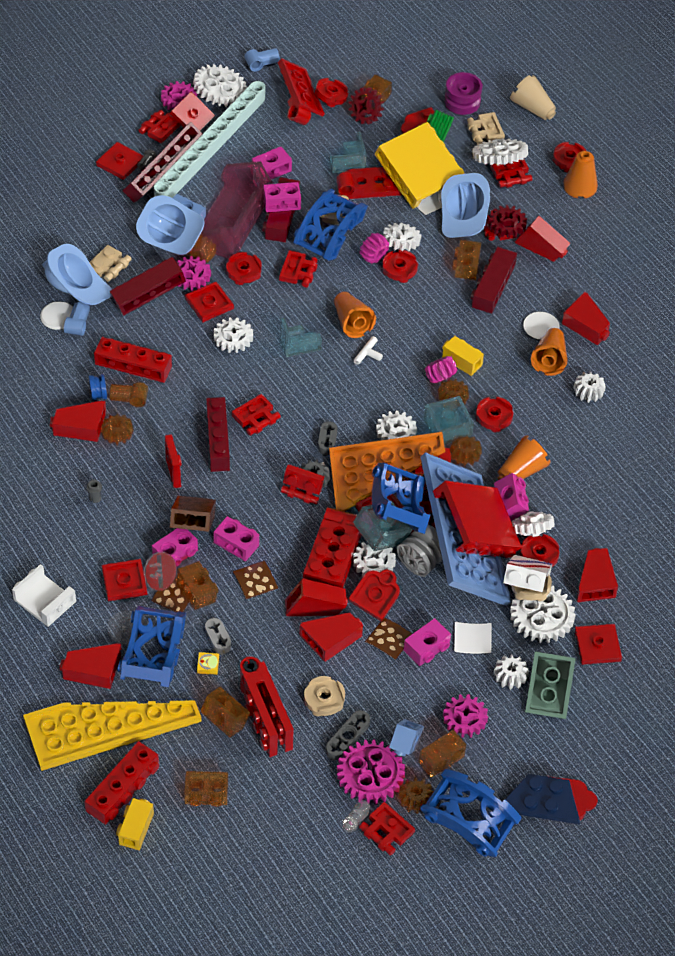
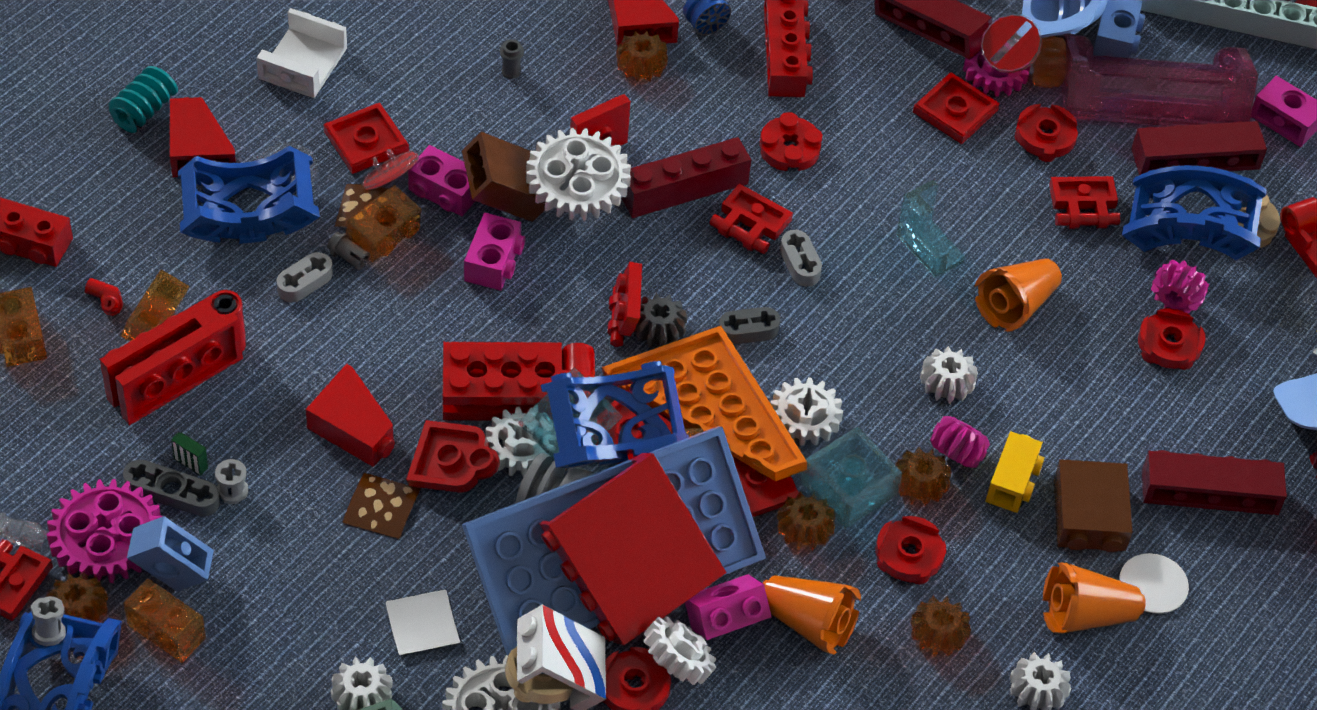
camera: 70 degrees right, 0 degrees up
(49, 686) = (142, 98): none -> teal piece
(78, 731) = (88, 165): yellow wing -> none
(134, 394) = (718, 58): clear orange piece -> none
(192, 255) = (1011, 43): none -> red piece
(196, 738) = (109, 295): none -> red arm
(203, 373) = (793, 129): none -> red plate
(207, 609) = (346, 249): none -> dark grey pin
(208, 663) = (250, 277): tile -> none
(209, 481) = (578, 174): none -> white gear
(233, 335) = (897, 149): white gear -> none
(255, 579) = (431, 300): reddish brown sticker -> none
(282, 197) = (1205, 127): dark pink brick -> none
(289, 401) = (806, 256): none -> light grey beam
(315, 599) = (408, 379): red slope -> none
(324, 706) = (228, 420): tan plate -> none
(330, 718) = (189, 453): none -> dark green tile
(357, 701) = (226, 480): none -> light grey bush
(367, 350) = (961, 336): white piece -> none
(393, 362) = (949, 375): none -> white gear
(402, 236) = (1232, 322): white gear -> none
(433, 633) = (372, 537): dark pink brick -> none
(442, 798) = (48, 626): none -> light grey bush
(465, 715) = (270, 639): dark pink gear -> none
(467, 259) = (1238, 431): clear orange brick -> none
(493, 331) = (1092, 505): none -> reddish brown brick
(545, 415) = (940, 626): none -> clear orange gear
(587, 319) = (1201, 647): red slope -> none

